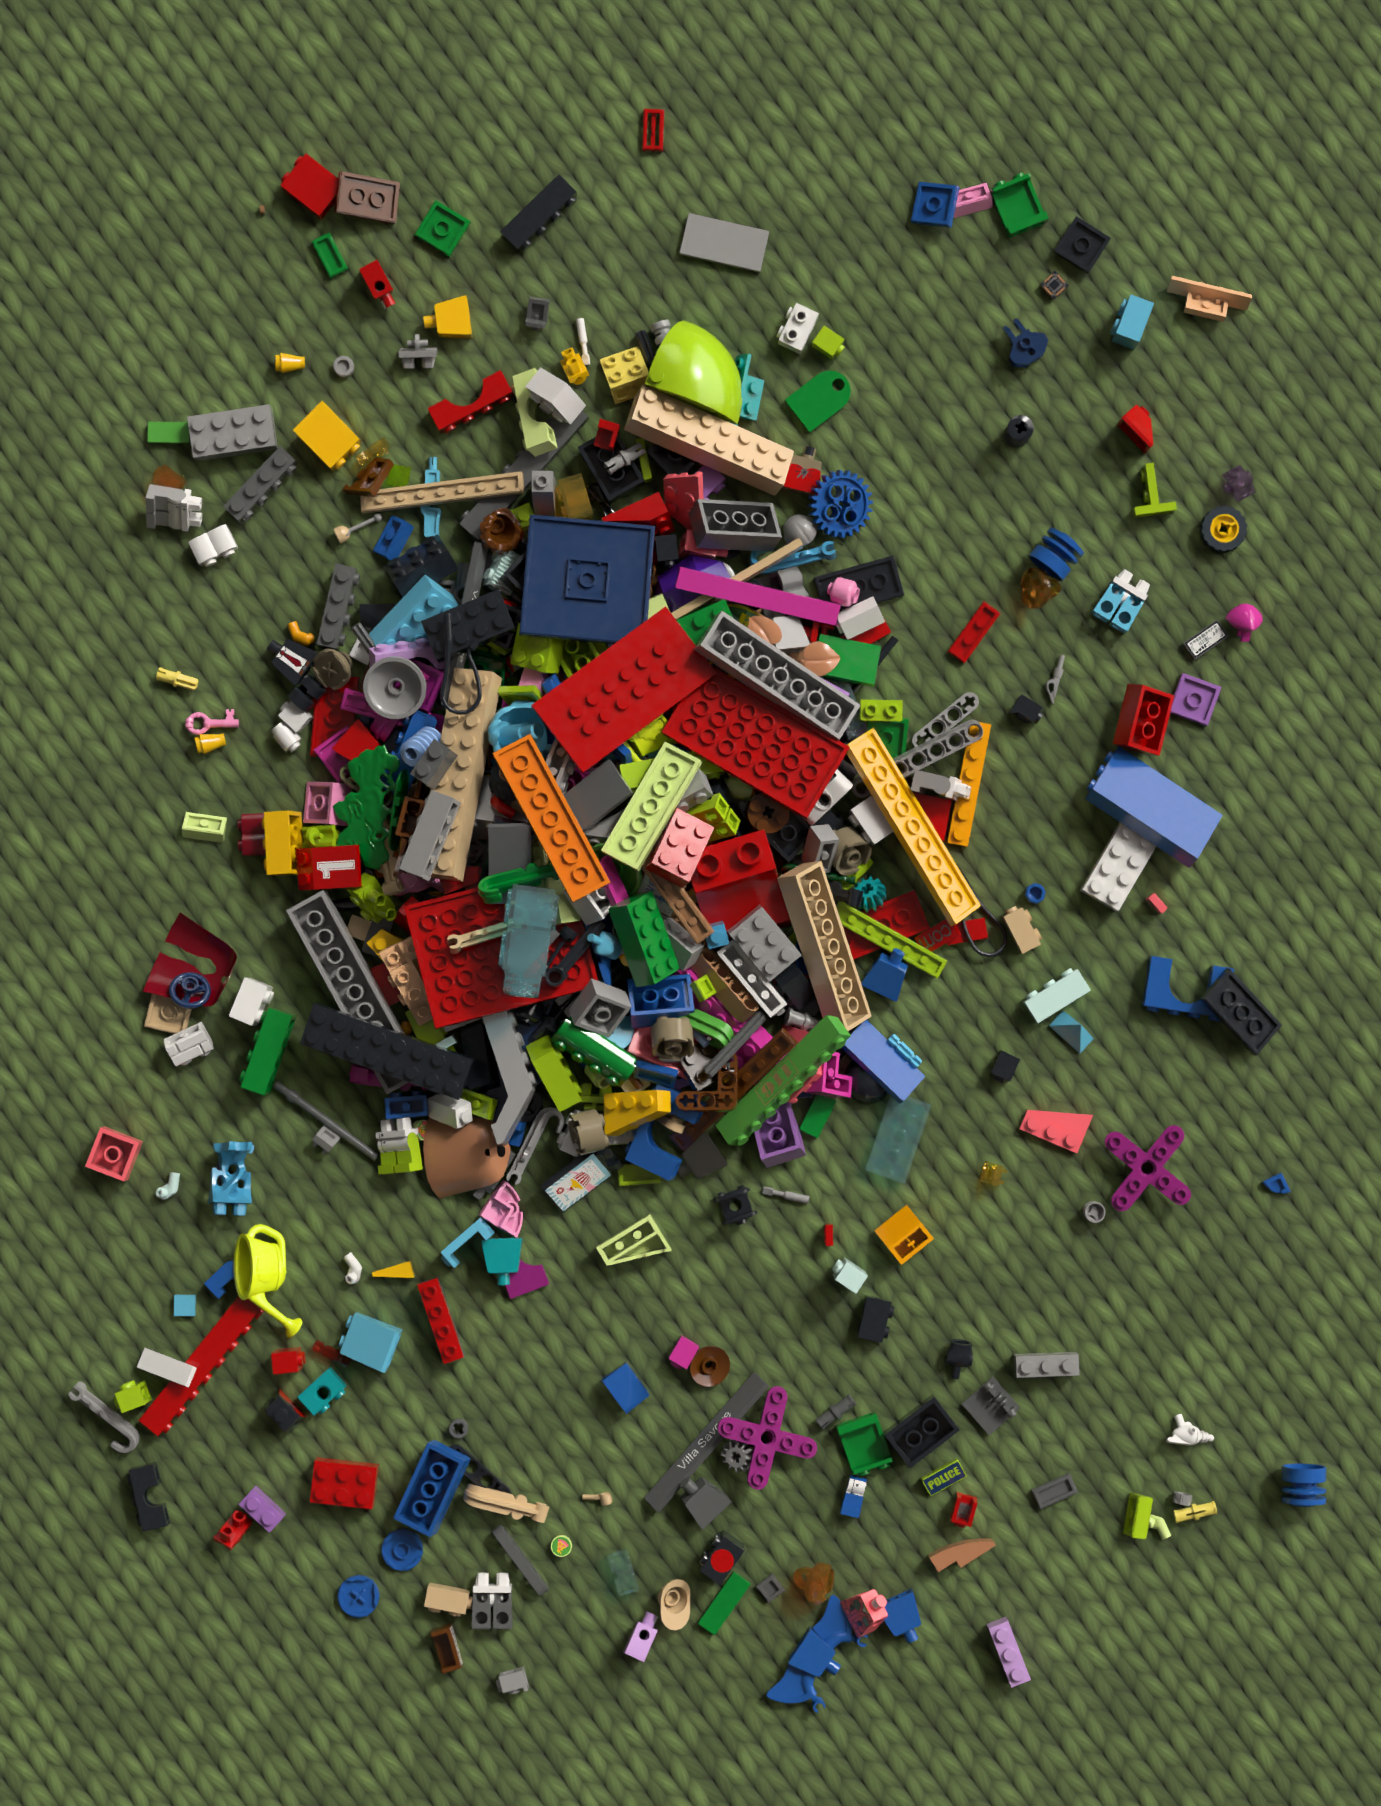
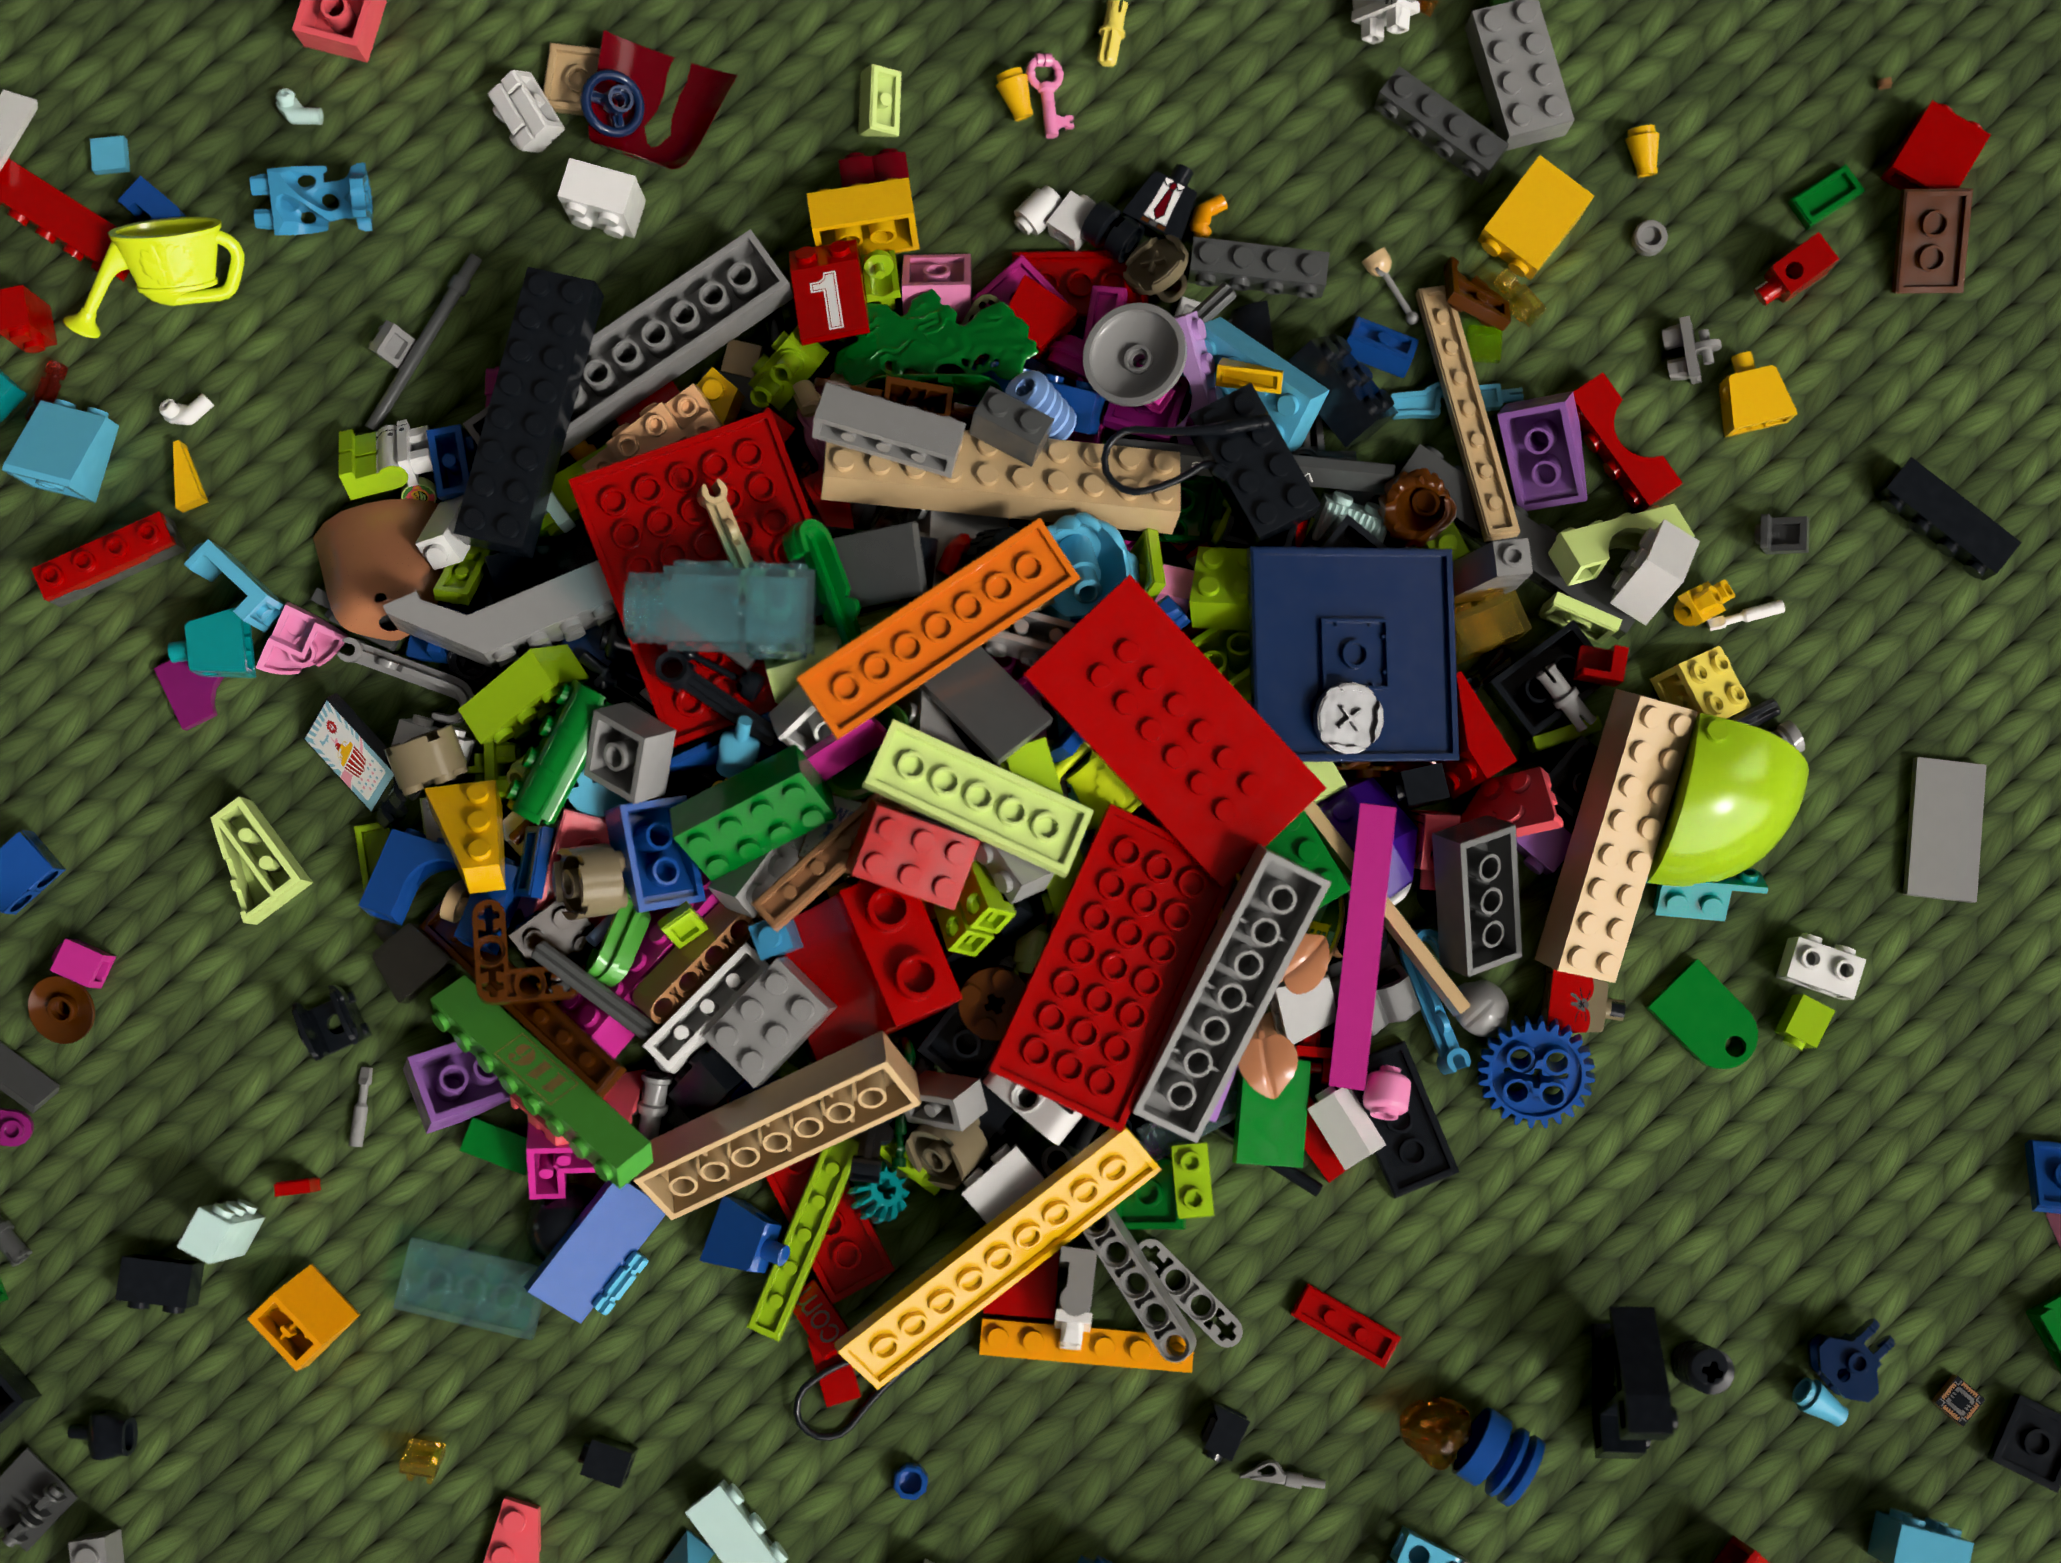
camera: 80 degrees right, 5 degrees down
(213, 545) = (1333, 64): white brick -> none
(268, 1051) = (523, 233): green brick -> none
(412, 625) = (1238, 374): none -> yellow piece
(442, 228) = (1897, 369): green tile -> none
(471, 449) = (1544, 451): none -> medium lavender slope
(576, 440) = (1593, 622): none -> yellowish green tile
(625, 588) = (1348, 718): none -> tile
(1021, 930) = (844, 1464): tan brick -> none
(1023, 475) = (1629, 1385): none -> black wedge
(1046, 366) = (1817, 1401): none -> medium azure cone

